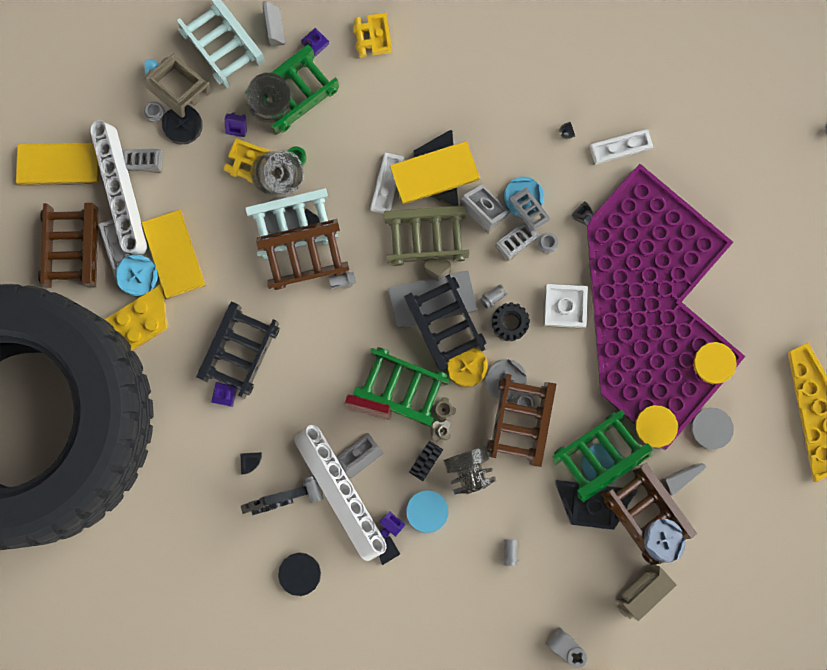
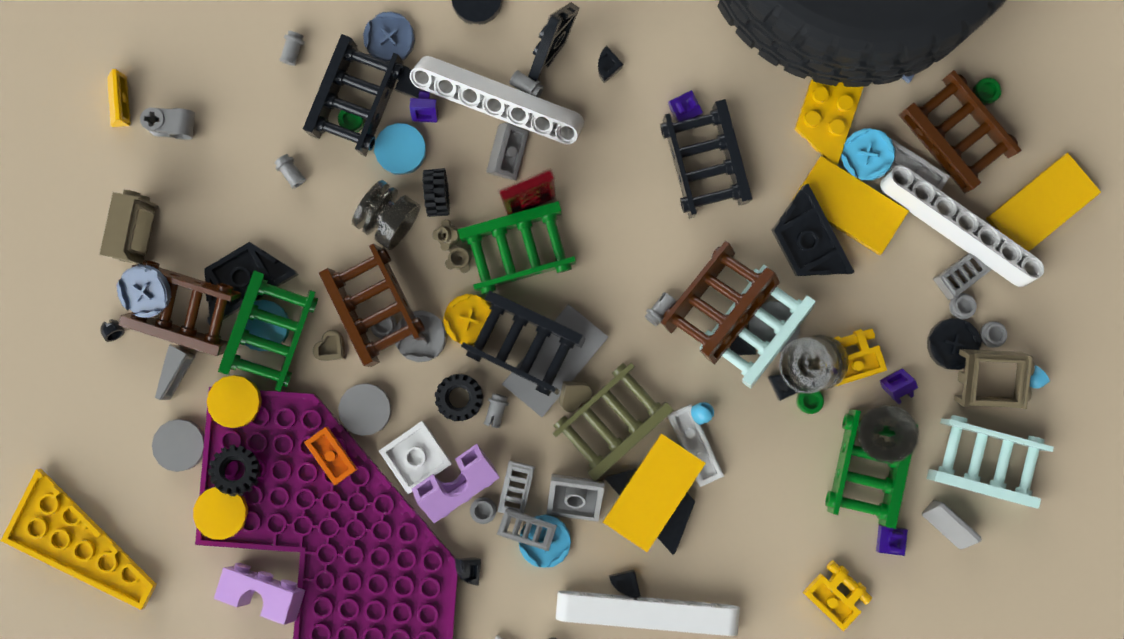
camera: 150 degrees right, 5 degrees up
(30, 258) = (987, 90): none -> green tile
(158, 141) = (963, 306): none -> light grey plate
(216, 252) = (809, 239): none -> black wing
(307, 179) = (780, 388): none -> black tile
(367, 198) = (702, 413): none -> medium azure hinge
(377, 593) = (388, 35): none -> sand blue tile
(444, 557) = (350, 121): none -> green tile
(447, 637) = (291, 48): none -> light grey pin
(449, 579) = (337, 76): none -> black fence
(493, 135) = (626, 583): none -> black tile
(494, 108) = (647, 613): none -> white beam
(568, 268) = (441, 498): none -> lavender arch
(569, 417) = (330, 347): none -> dark tan tile
(575, 360) = (364, 409): none -> light grey tile
(618, 344) = (330, 455): none -> orange plate
(700, 380) = (220, 463): none -> black tyre
(705, 537) = (111, 331): none -> black hinge
(713, 282) = (279, 598): none -> lavender arch

